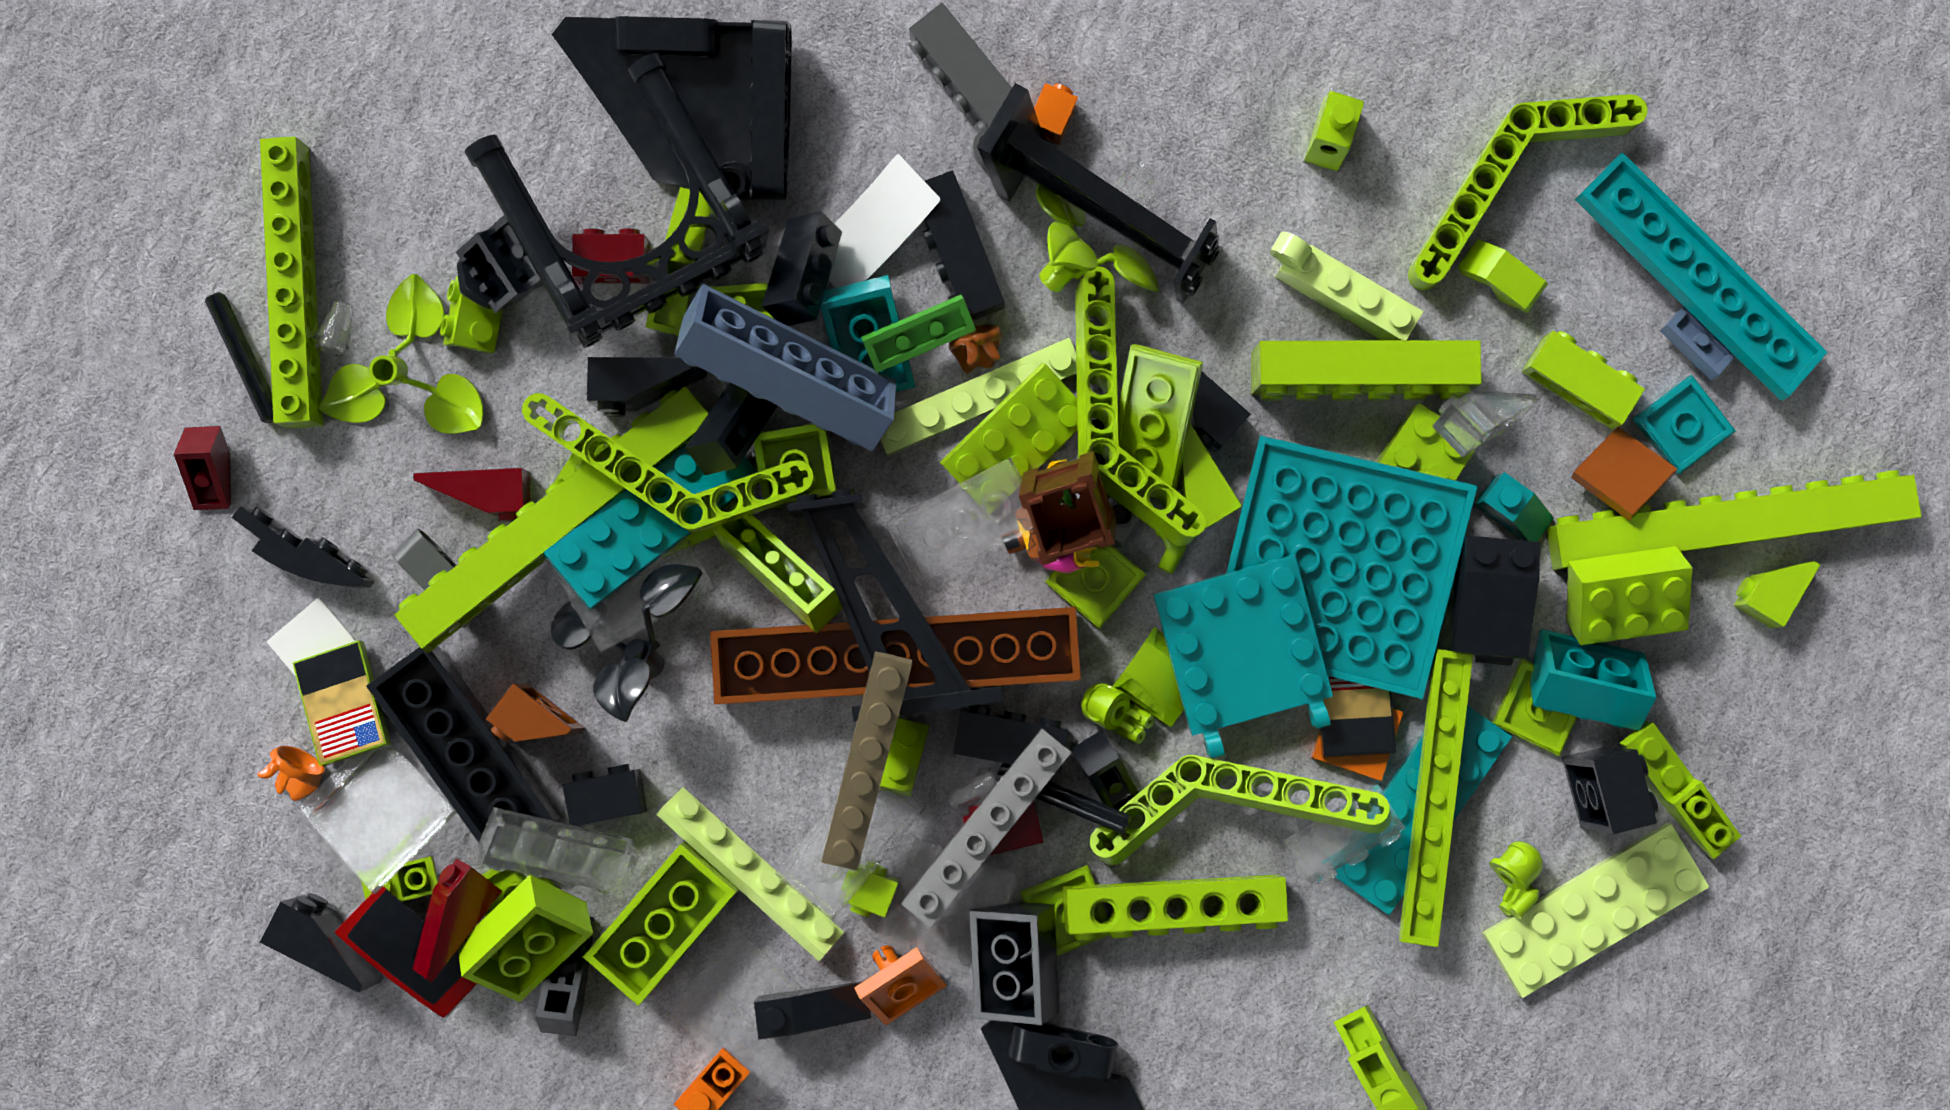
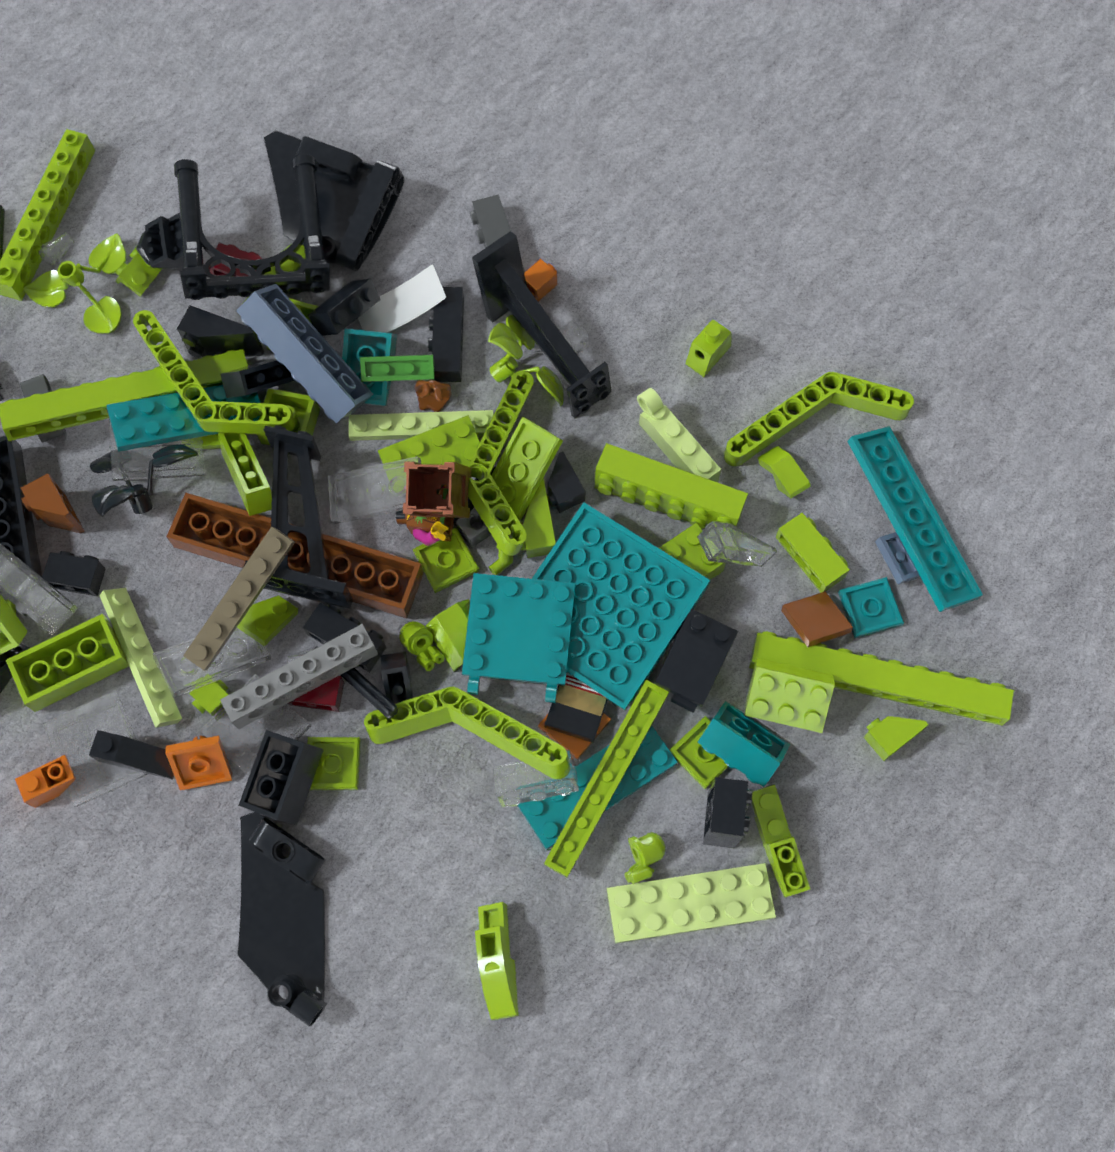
camera: 20 degrees right, 15 degrees down
(490, 490) = (92, 364): dark red slope -> none
(1267, 890) = (343, 753): lime brick -> none
(1514, 507) = (736, 613): teal slope -> none

